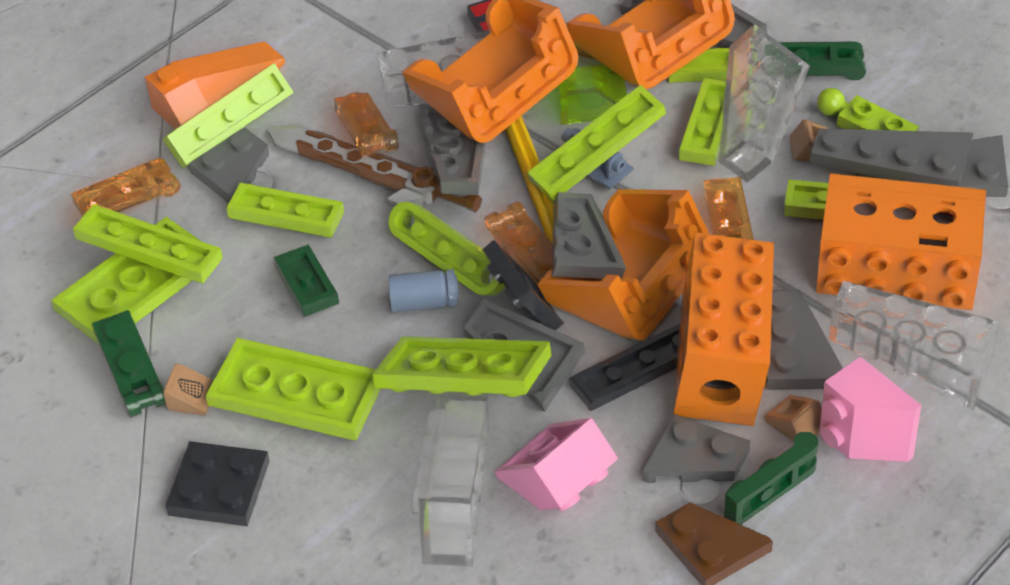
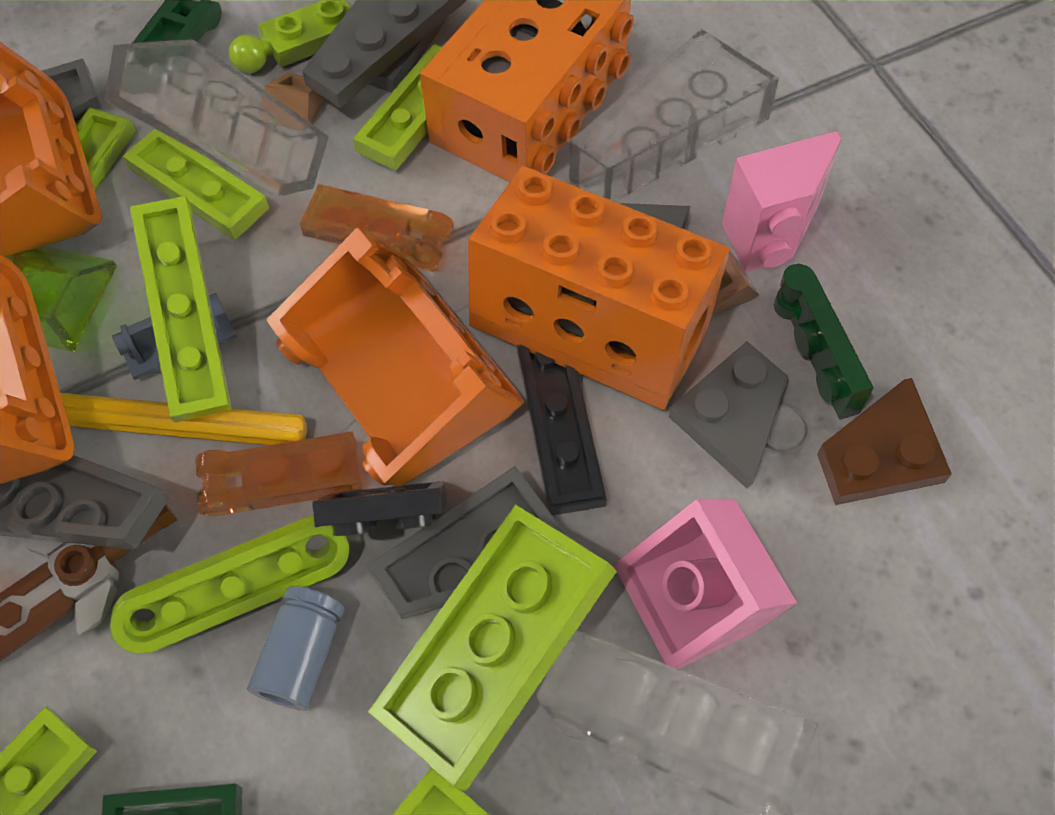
camera: 70 degrees left, 15 degrees up
(582, 239) = (328, 399): dark grey wing -> none

